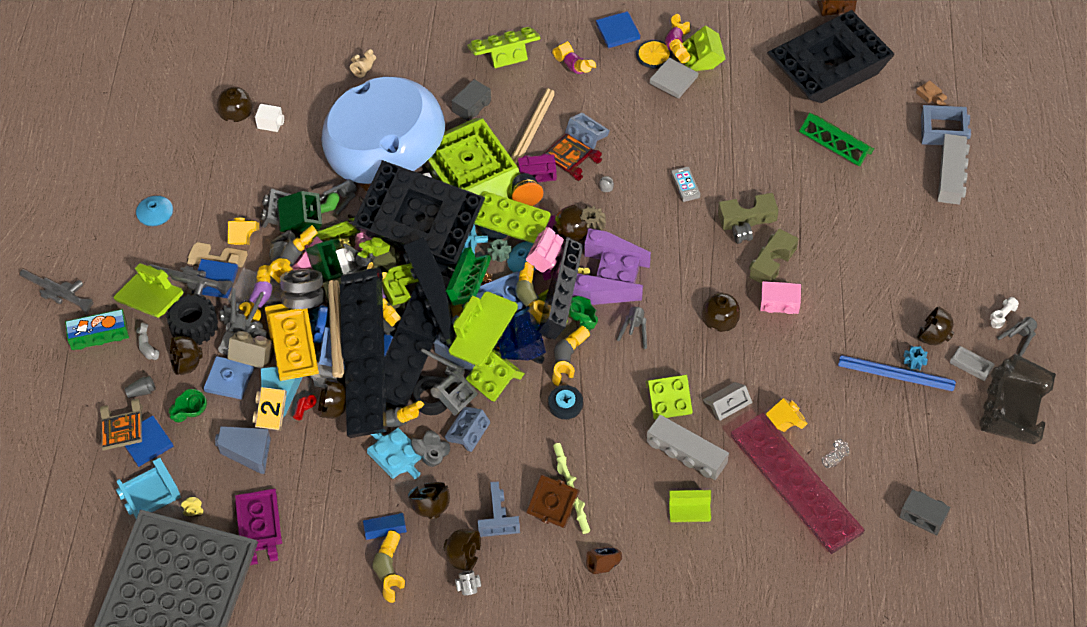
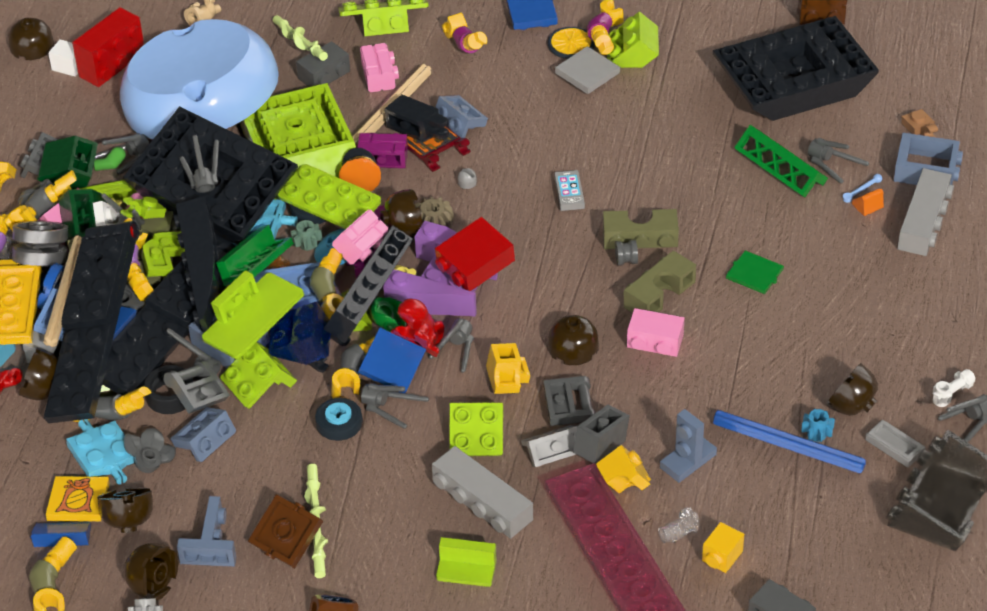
camera: 10 degrees right, 10 degrees down
(301, 106) = (108, 46): none -> red brick
(388, 496) = (76, 498): none -> yellow tile
(417, 219) = (203, 179): none -> dark grey plant
(450, 82) = (300, 41): none -> yellowish green piece
(514, 96) = (378, 67): none -> bright pink brick
(556, 139) = (415, 119): none -> black hinge
(588, 379) = (376, 395): none -> dark grey plant
(593, 349) = (391, 360): none -> blue tile
(610, 321) = (420, 326): none -> red animal
(635, 254) = (474, 254): none -> red brick
(679, 344) = (506, 368): none -> yellow brick
(725, 364) = (561, 403): none -> dark grey plate
(764, 389) = (601, 434): none -> dark grey brick
(829, 391) = (690, 449): none -> sand blue bracket
(838, 235) = (754, 272): none -> green piece
(866, 125) = (822, 150): none -> dark grey plant
(871, 466) = (723, 547): none -> yellow brick
(891, 162) = (847, 197): none -> light blue hinge
(909, 164) = (869, 202): none -> orange slope

